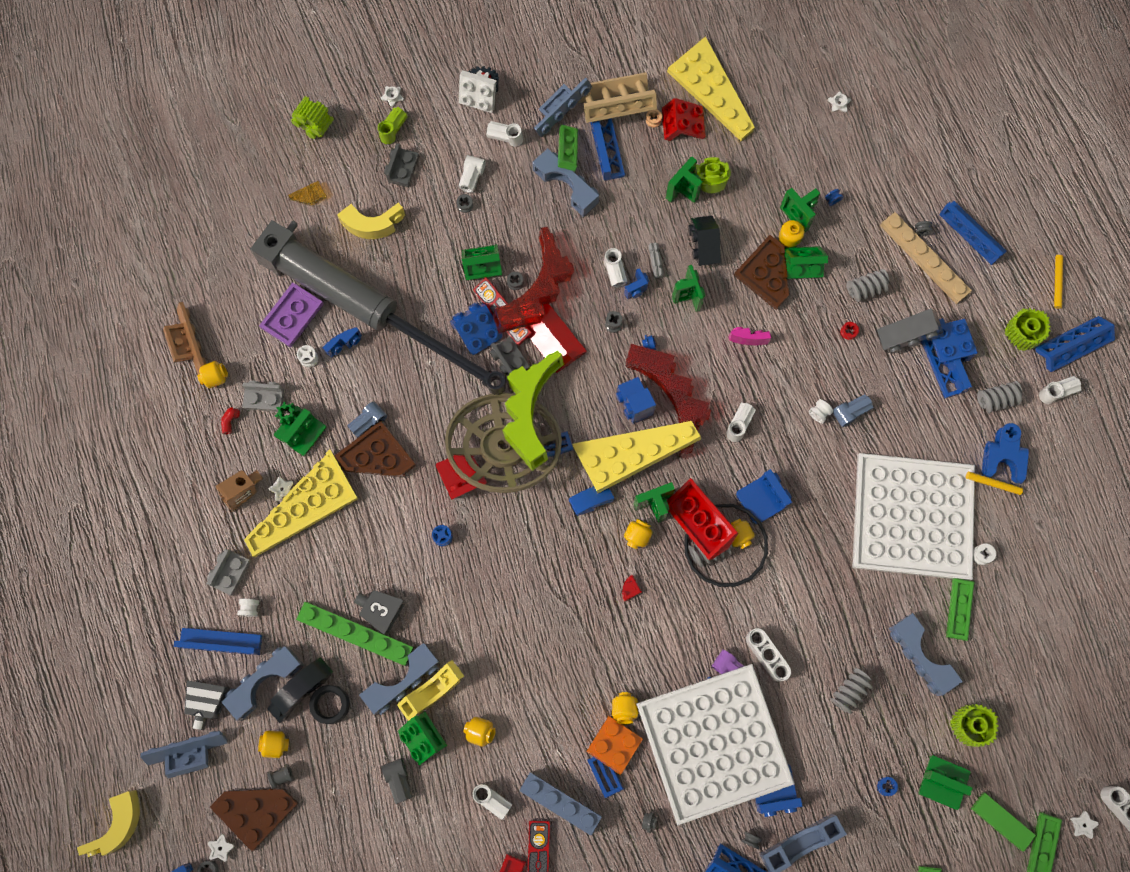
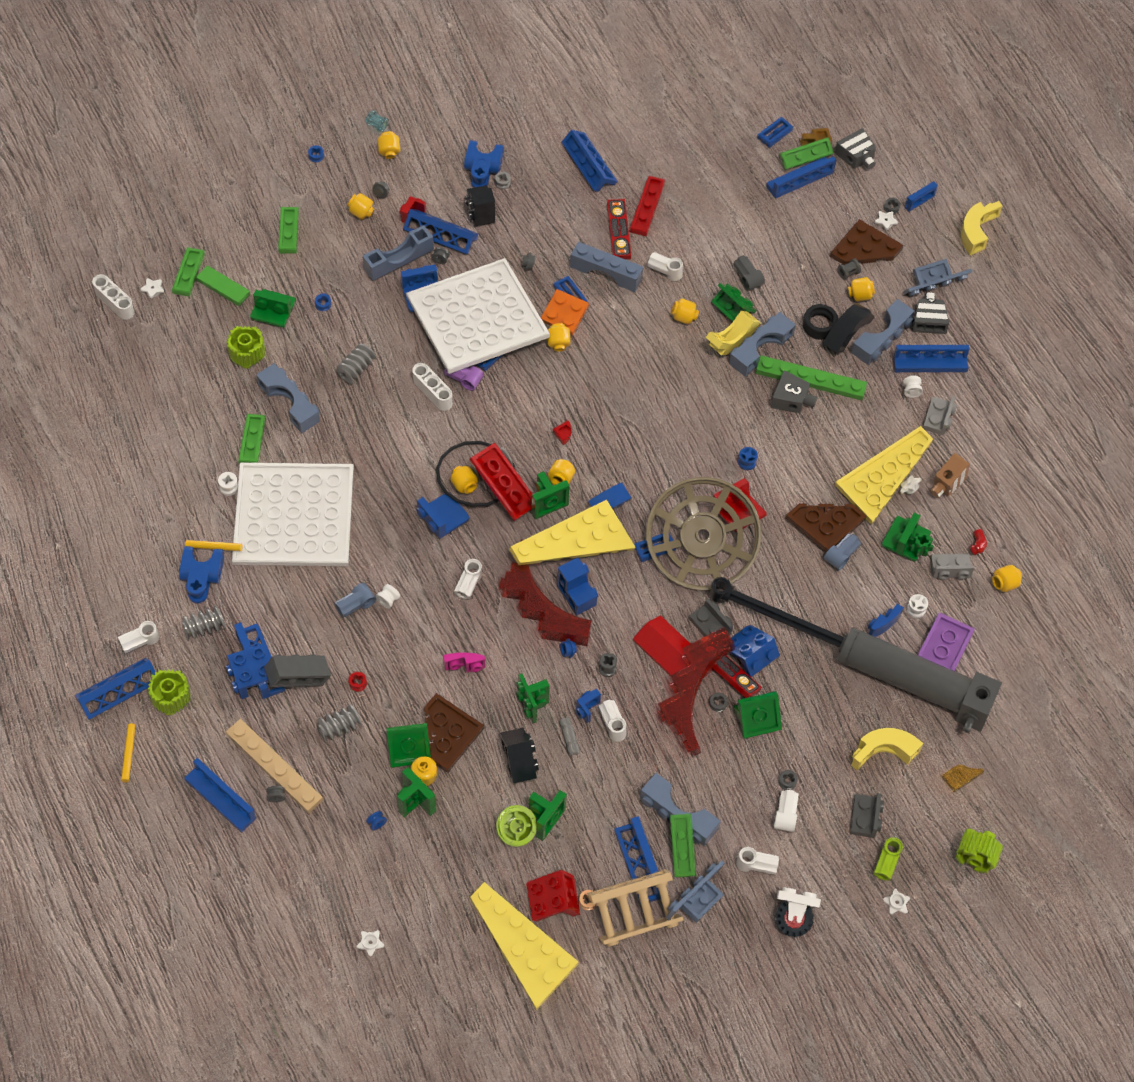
camera: 170 degrees right, 15 degrees down
(182, 339) = (1049, 607): medium nougat bracket -> none
(521, 406) = (686, 534): lime arch -> none

